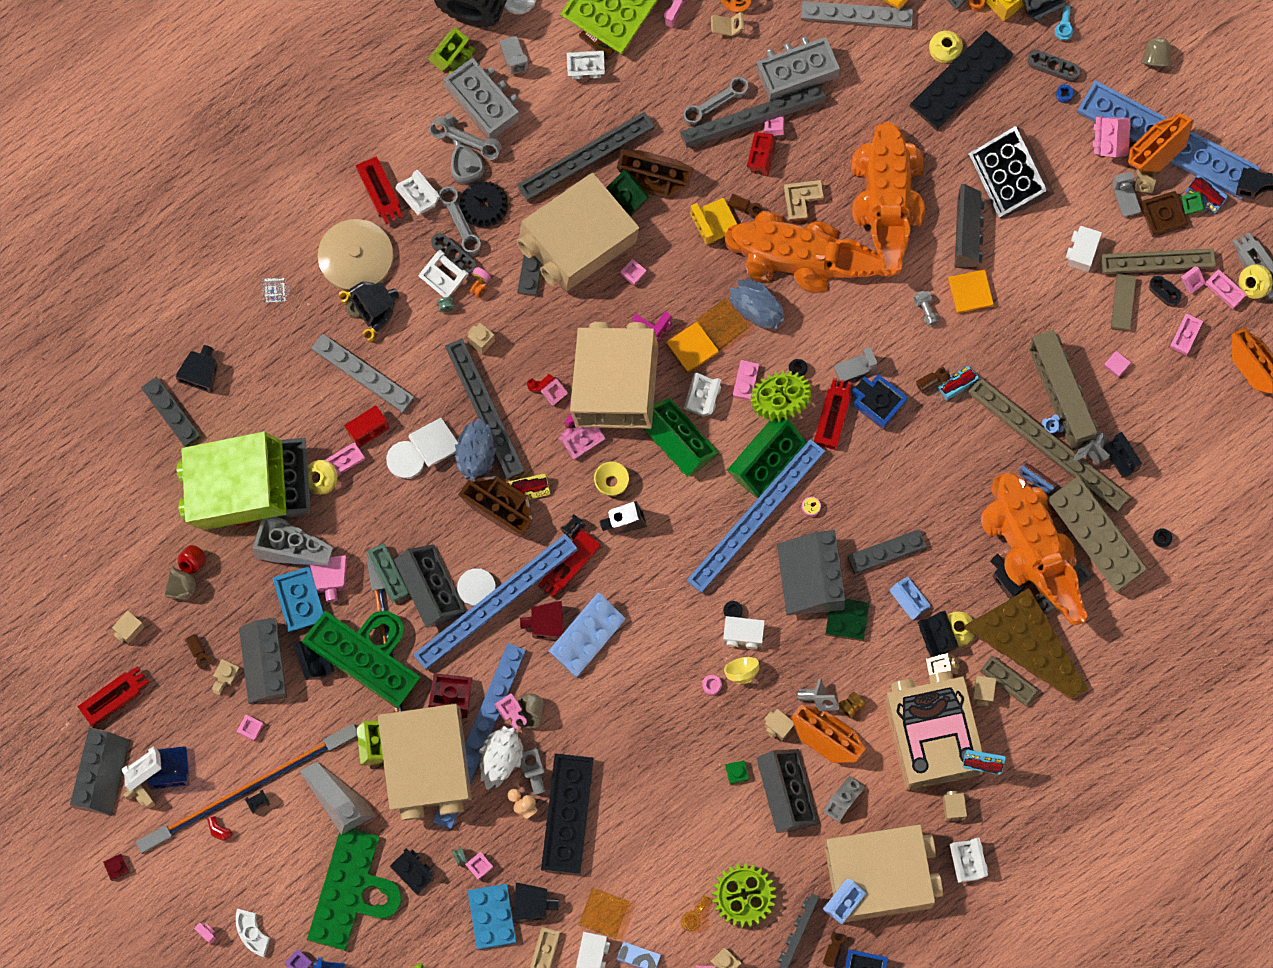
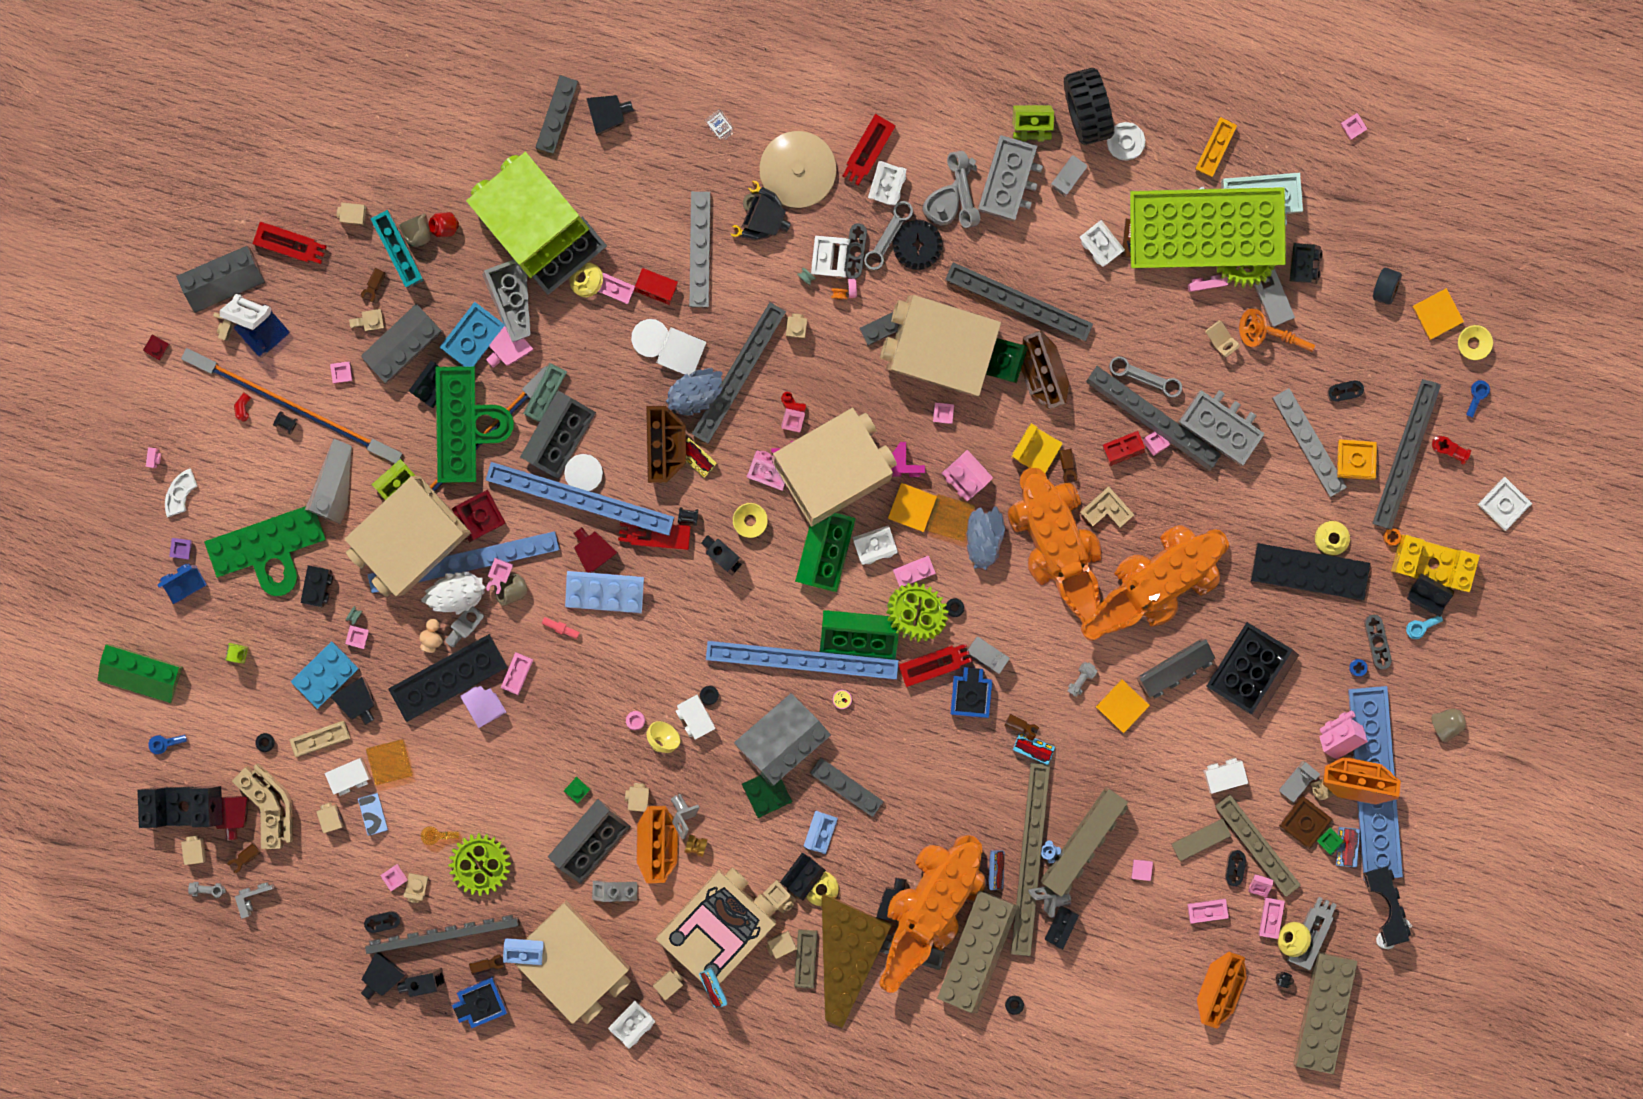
camera: 55 degrees right, 15 degrees up
(183, 609) = (397, 249): none -> teal brick
(591, 693) = (560, 628): none -> coral bar
(604, 754) = (517, 673): none -> bright pink plate
(610, 799) = (482, 705): none -> lavender piece
(697, 282) = (967, 475): none -> bright pink brick

